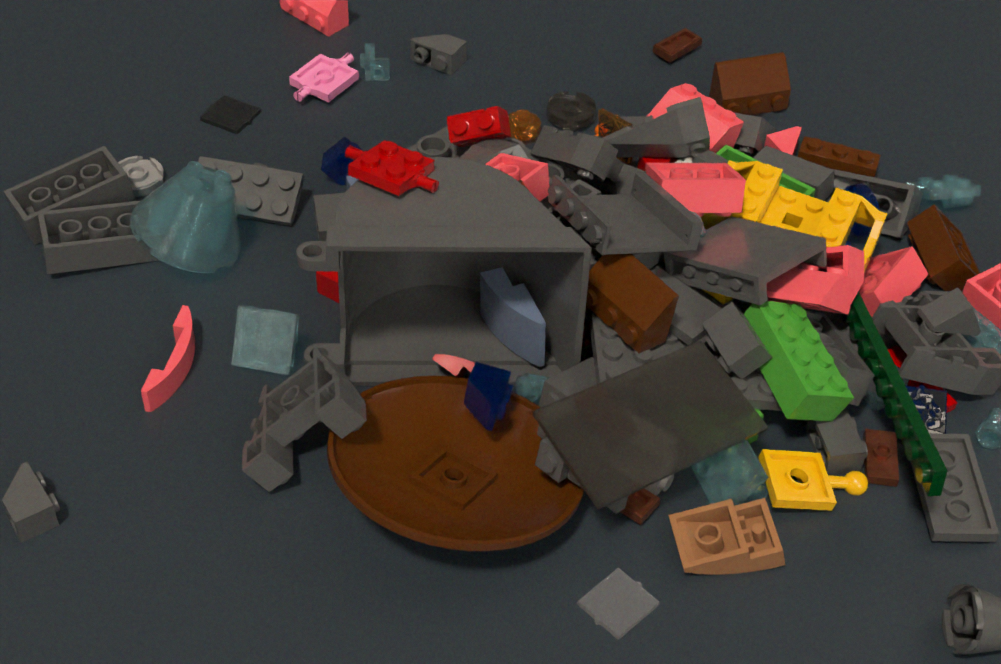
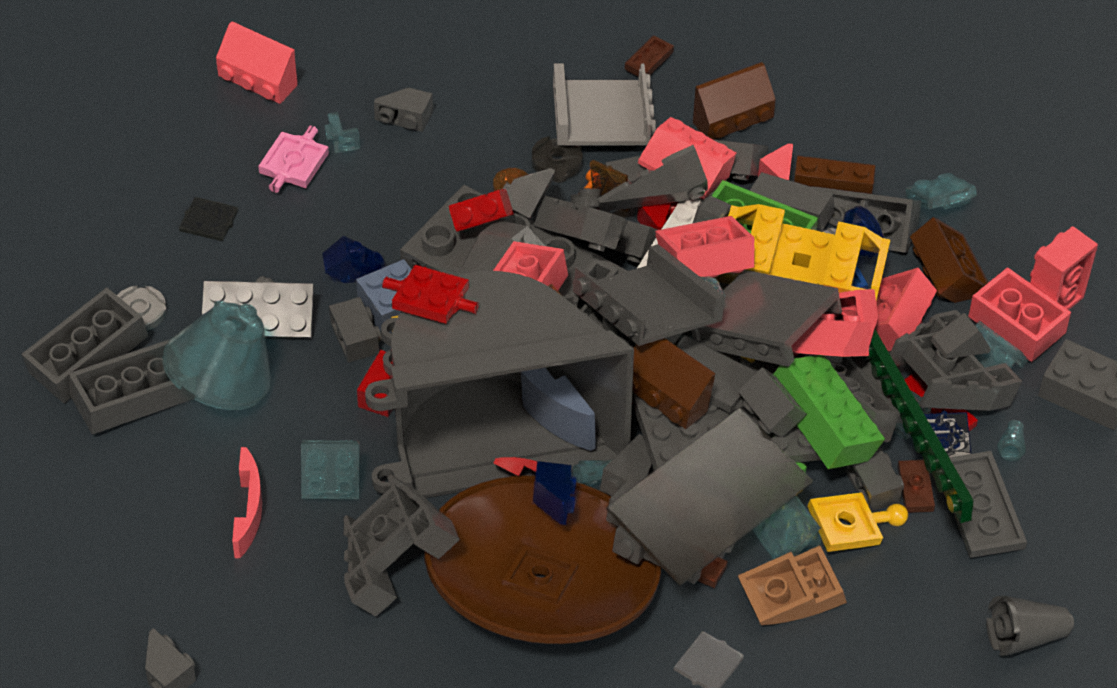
camera: 10 degrees left, 5 degrees up
(529, 118) = (527, 191): none -> dark grey slope
(622, 78) = (603, 110): none -> light grey panel

